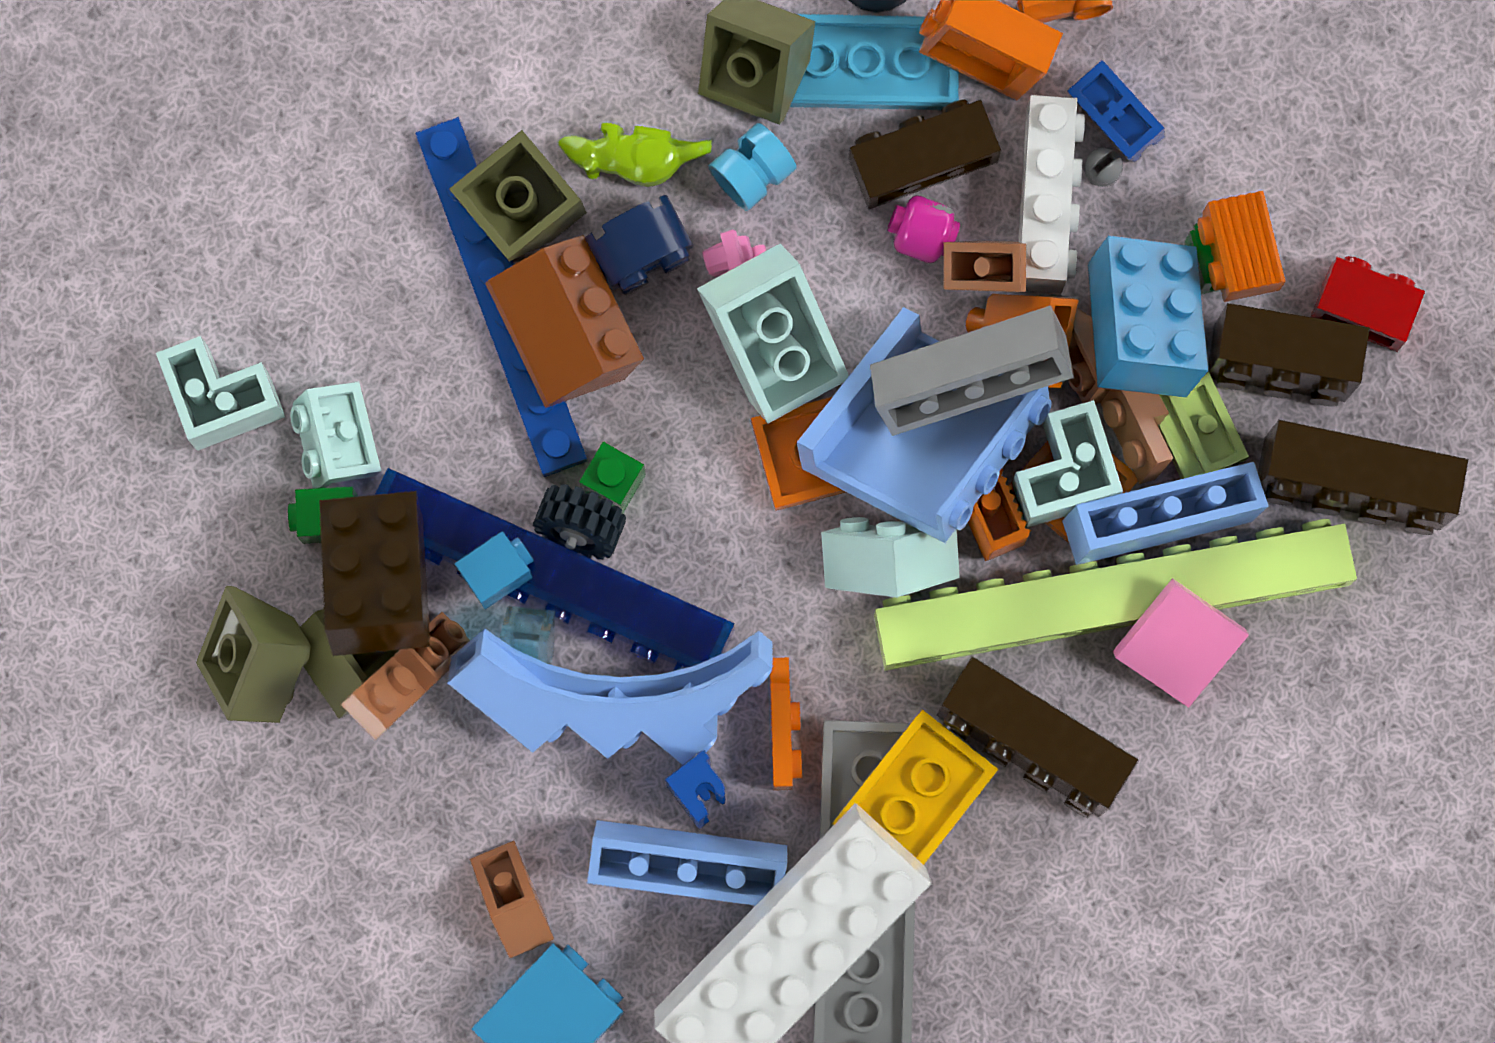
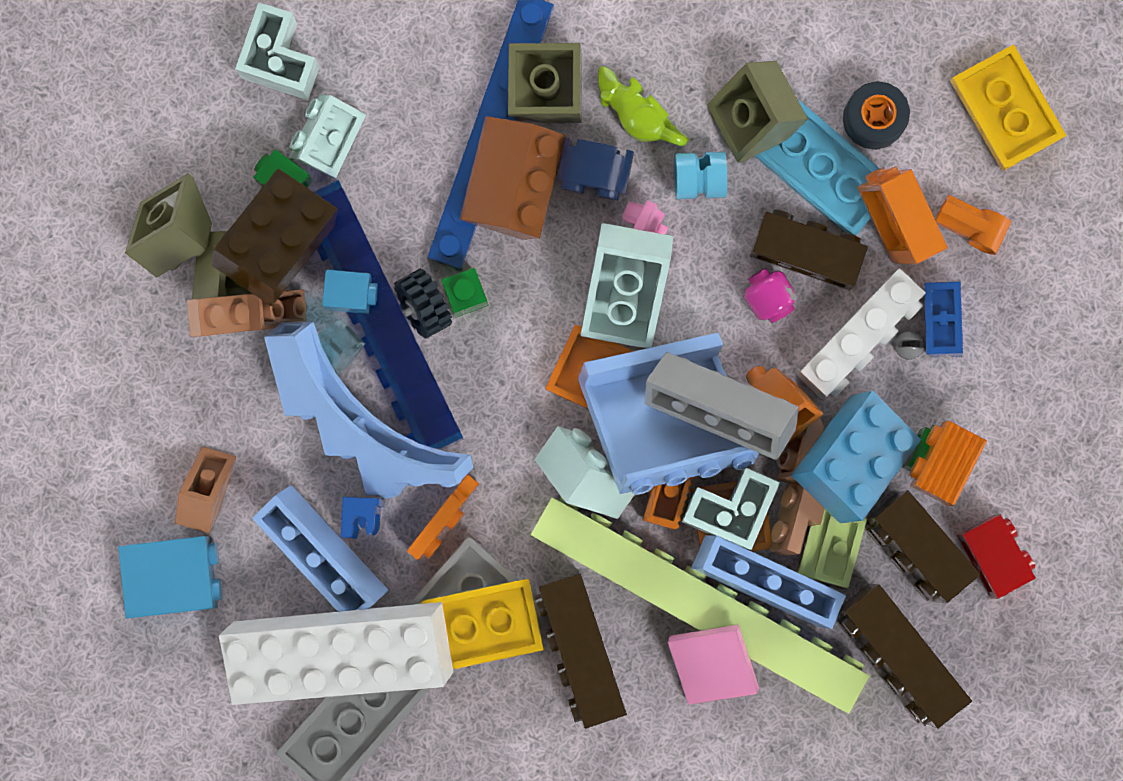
camera: 35 degrees right, 5 degrees up
(985, 266) = (785, 347): nougat slope -> none

